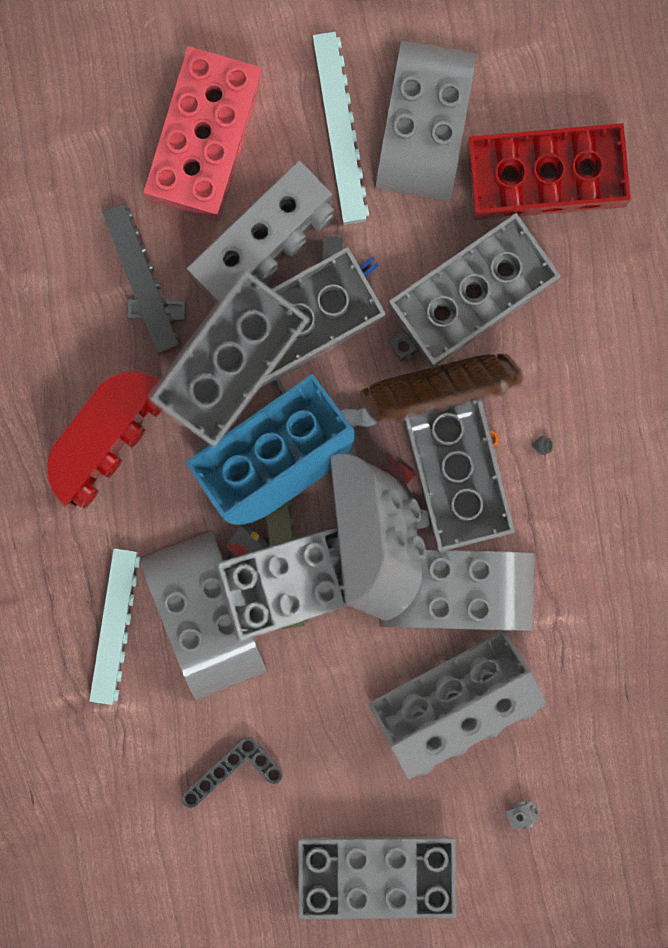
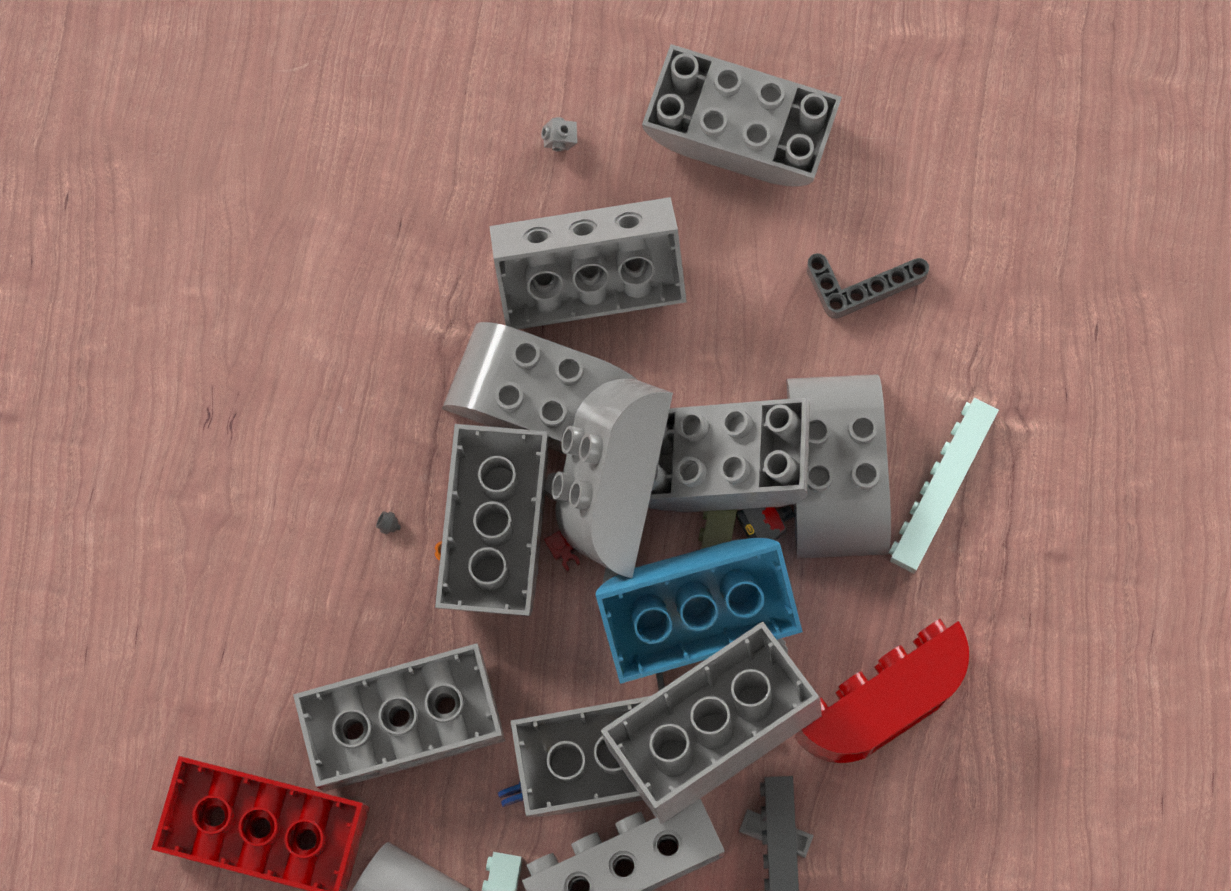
camera: 155 degrees left, 10 degrees down
(331, 246) = (546, 830): dark grey brick -> none
(358, 418) = (580, 622): light grey brick -> none
(399, 338) = (504, 699): dark grey brick -> none
(441, 386) = (460, 604): reddish brown plate -> none

